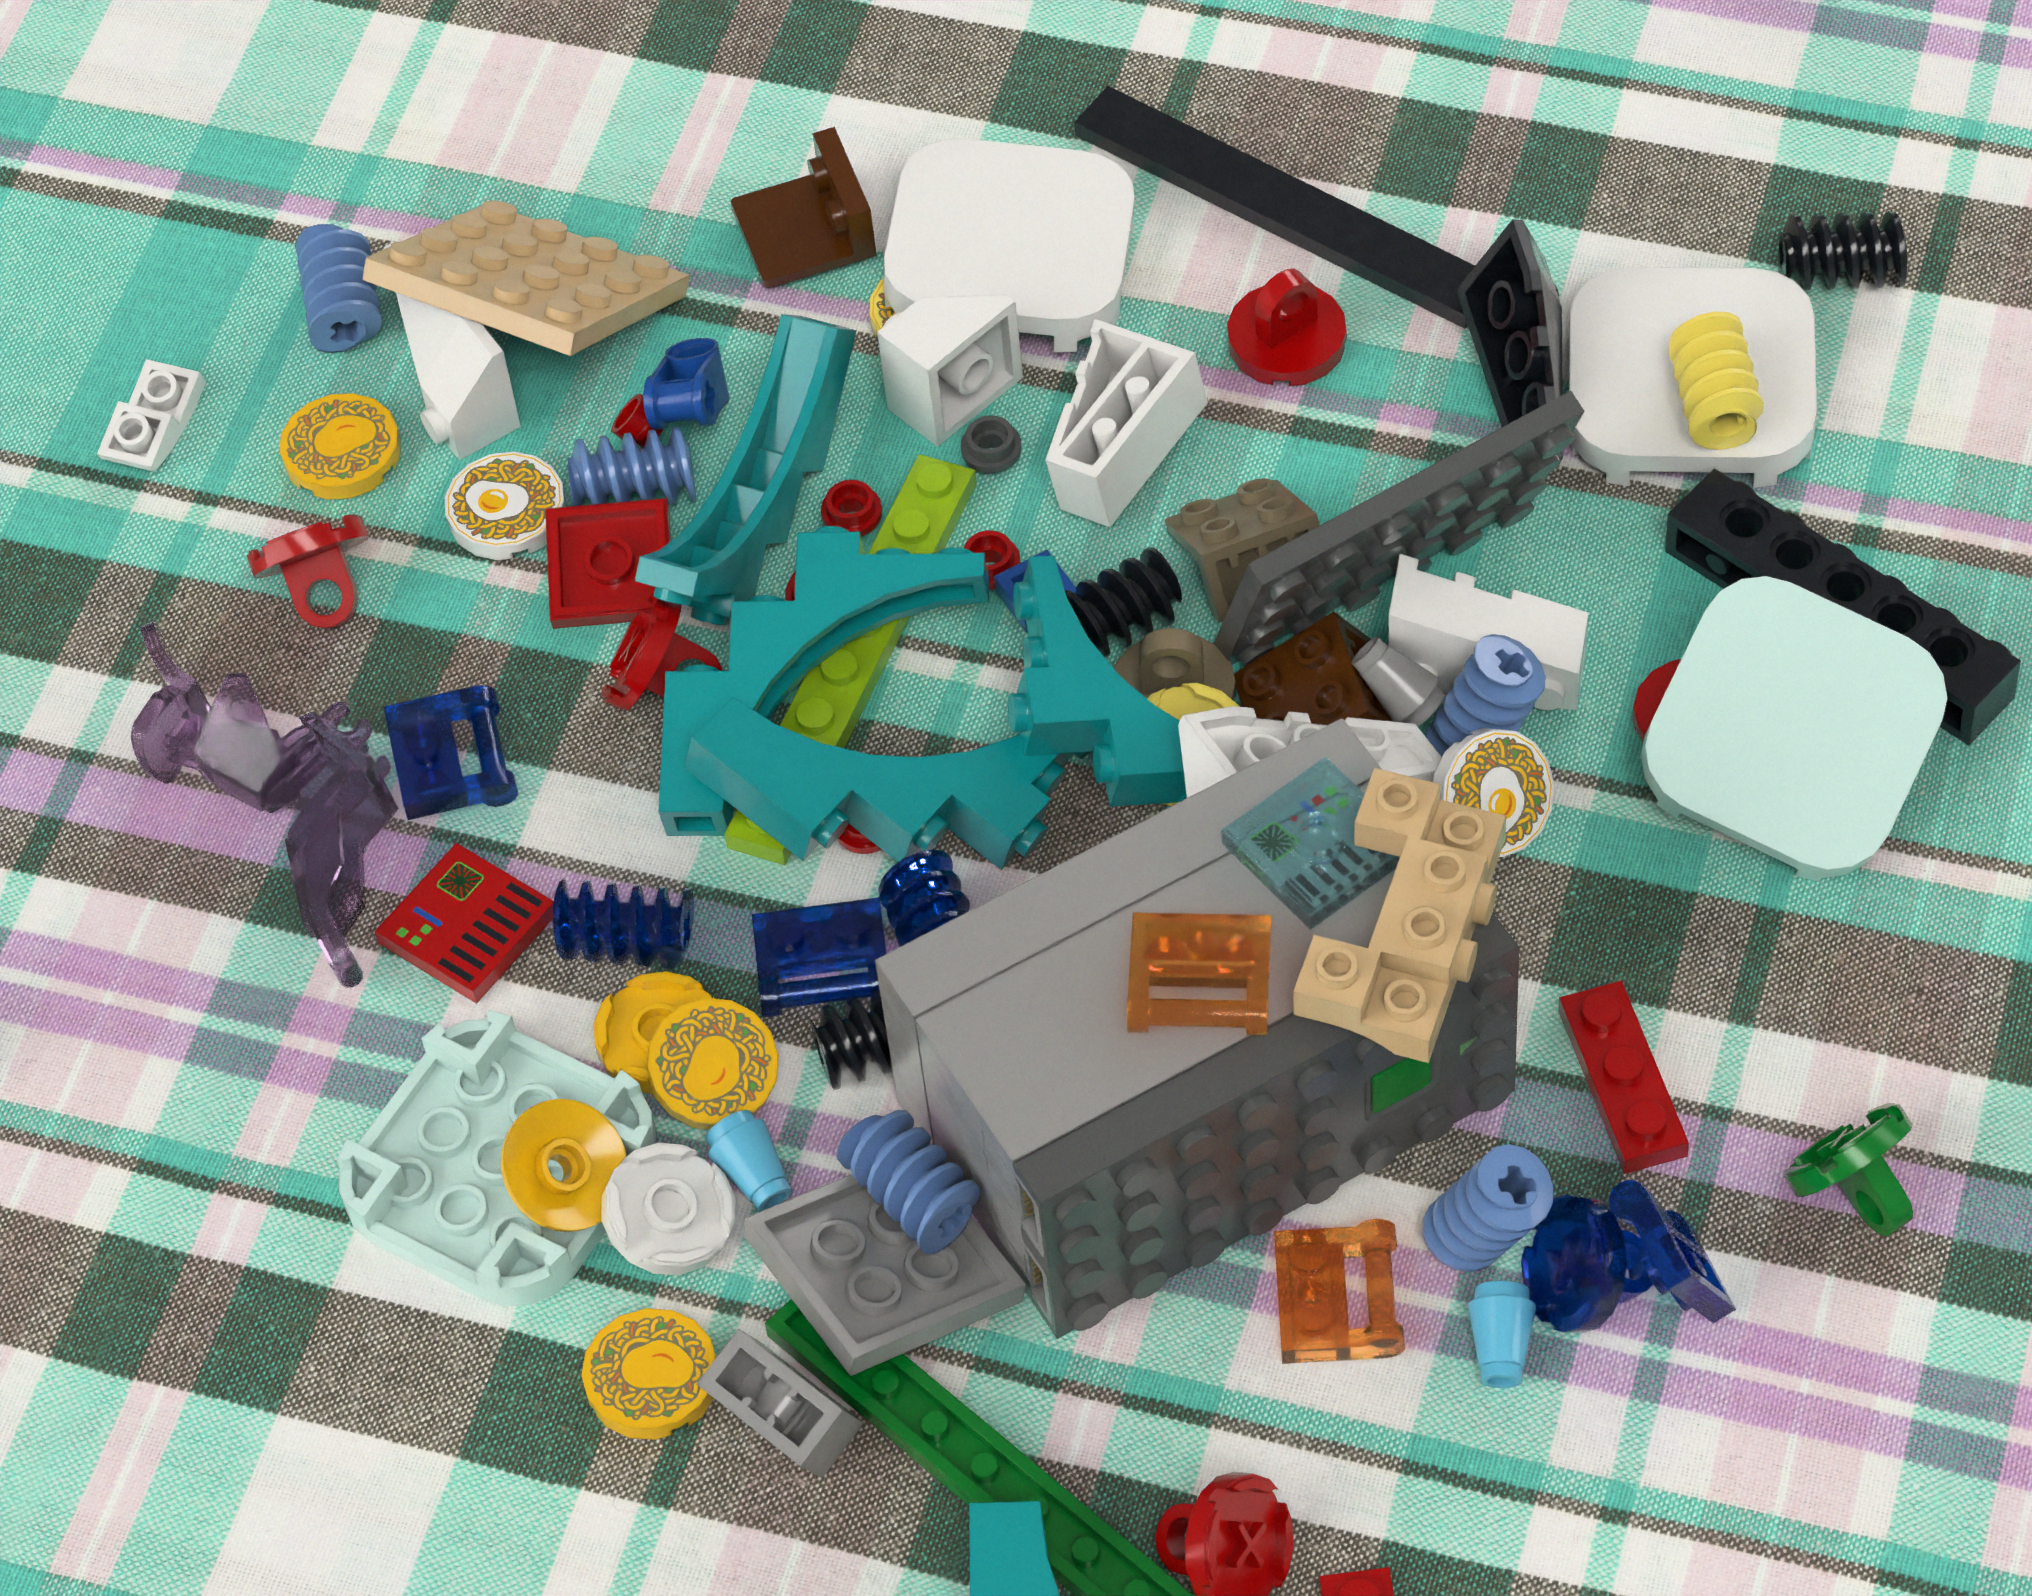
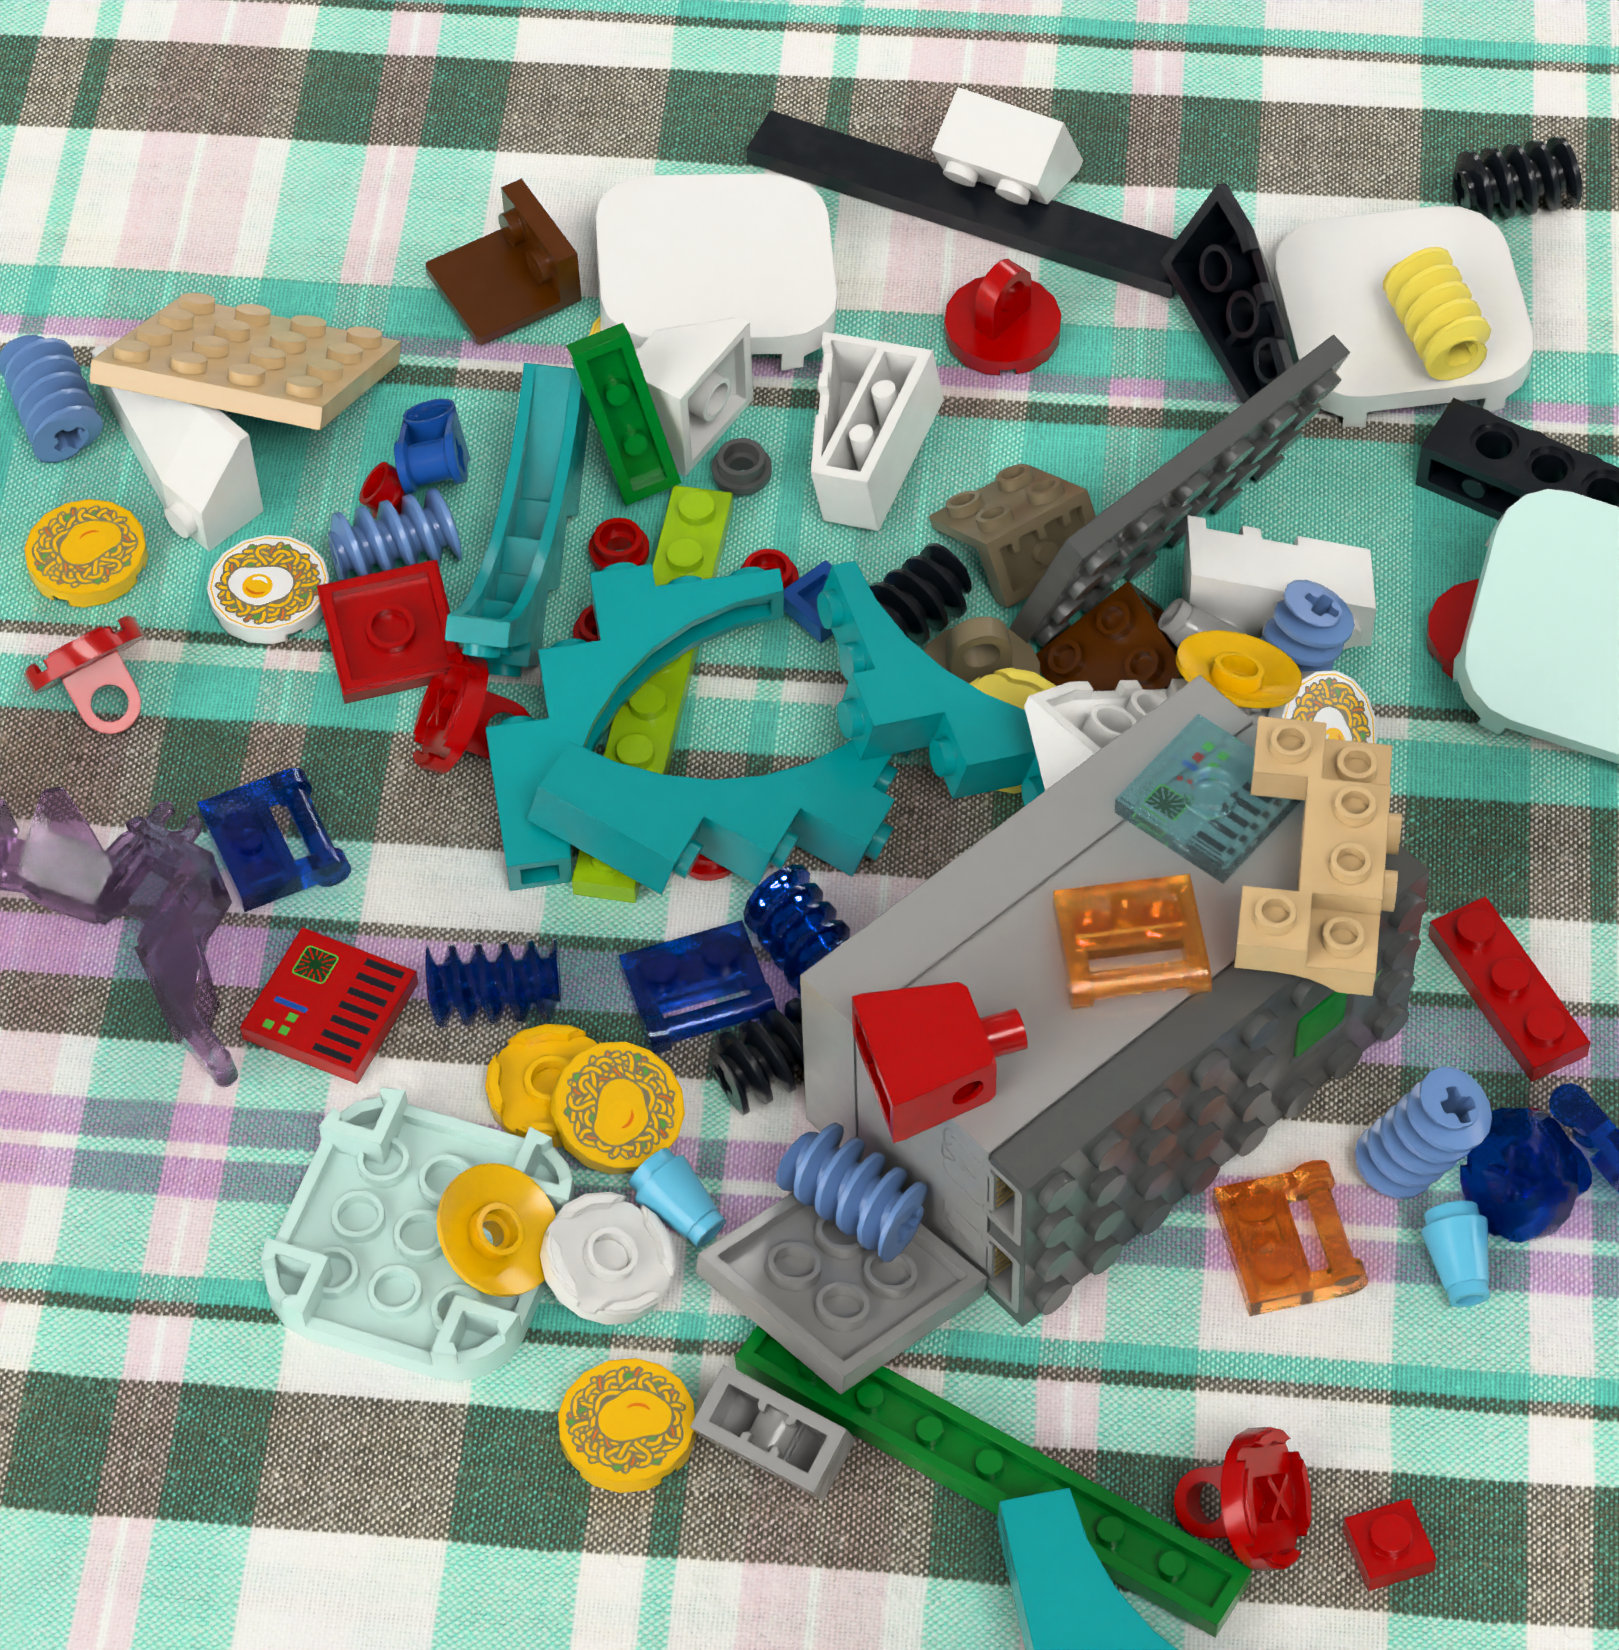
camera: 15 degrees left, 0 degrees up
(872, 377) = (623, 413): none -> green plate
(975, 1055) = (931, 1052): none -> red torso
(1325, 155) = (1005, 148): none -> white slope
(1412, 716) = (1240, 668): none -> yellow dish

